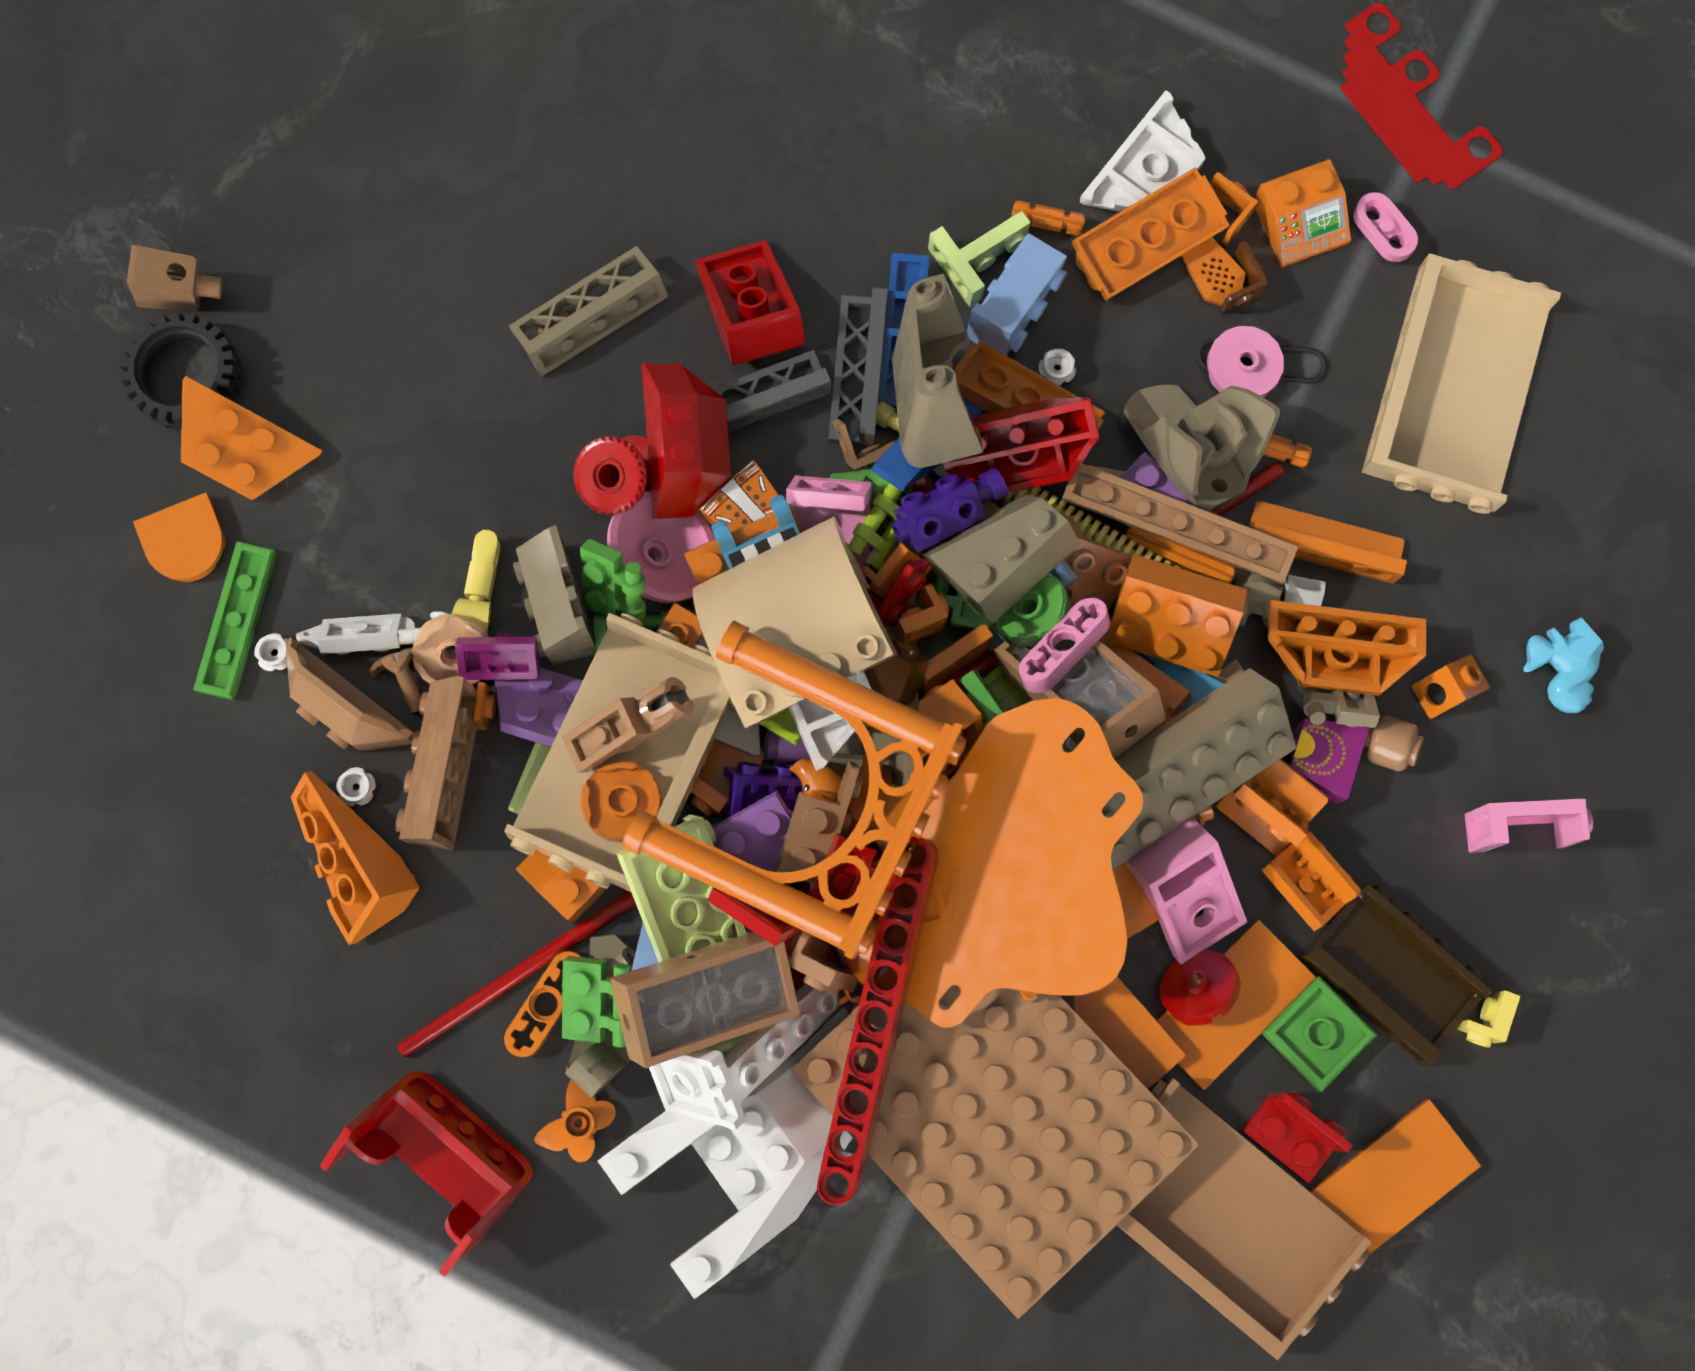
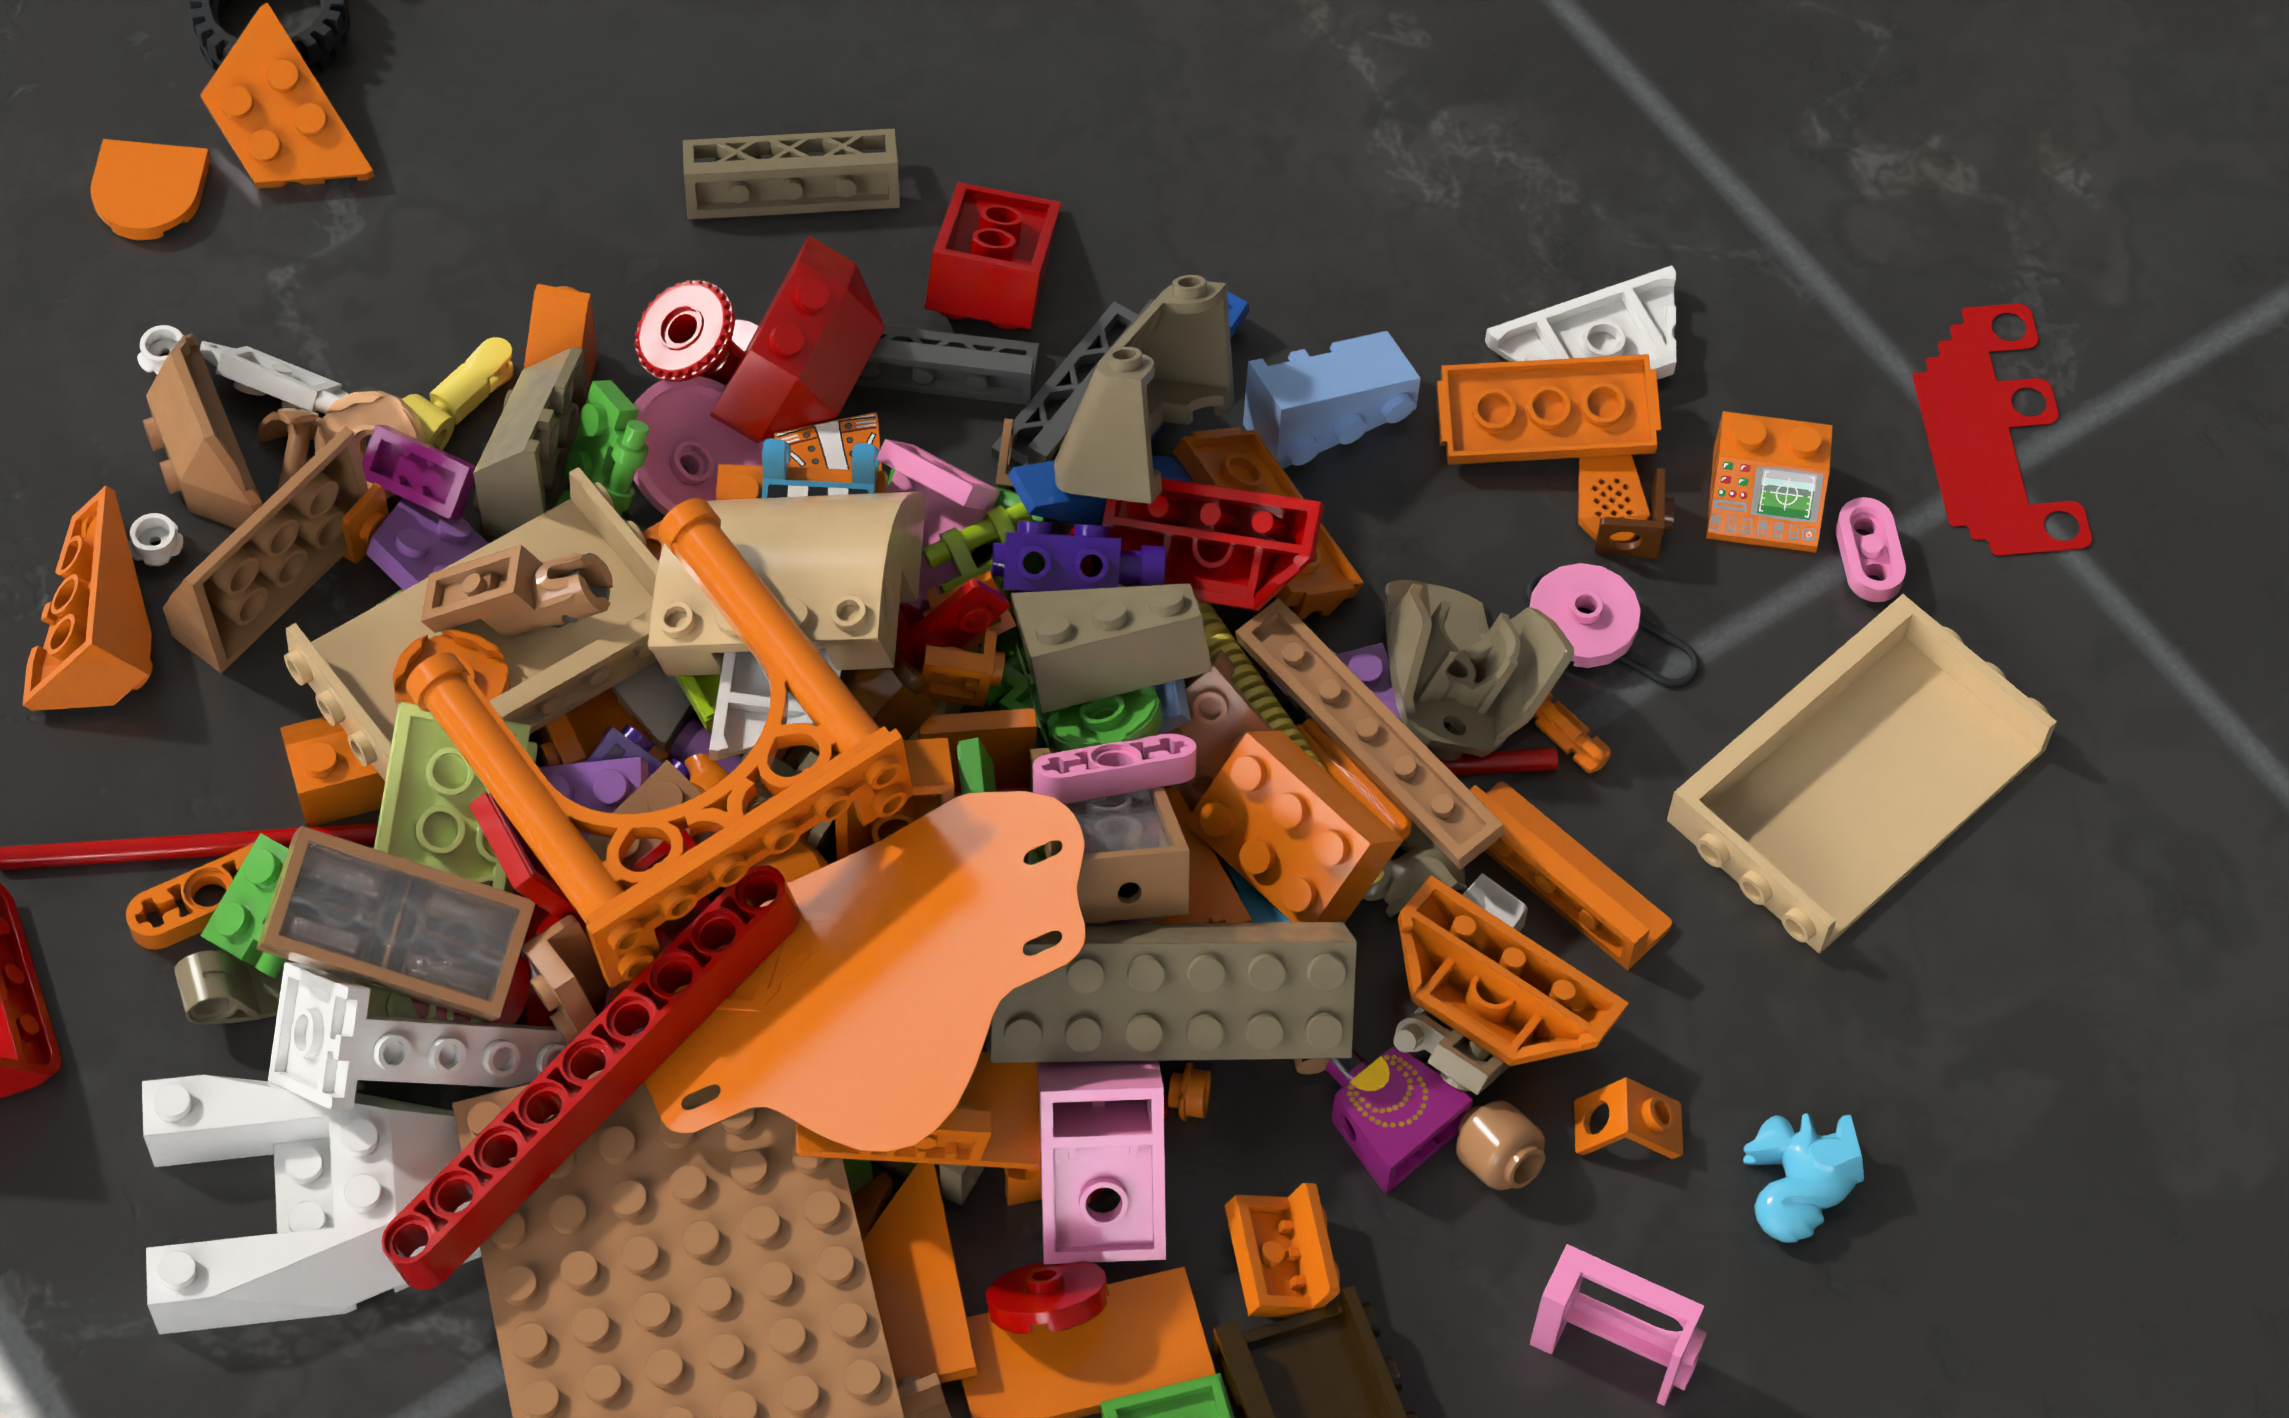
camera: 30 degrees right, 20 degrees down
(235, 621) = (144, 300): bright green tile -> none
(524, 511) = (561, 321): none -> orange slope
(577, 1124) = (150, 1049): orange animal -> none
(977, 255) = (1317, 327): yellowish green bracket -> none
(1051, 218) = (1428, 335): orange axle -> none
(1057, 357) = (1342, 494): white plate -> none
(1235, 197) = (1691, 429): orange bracket -> none
(1274, 806) = (1288, 1125): orange bracket -> none

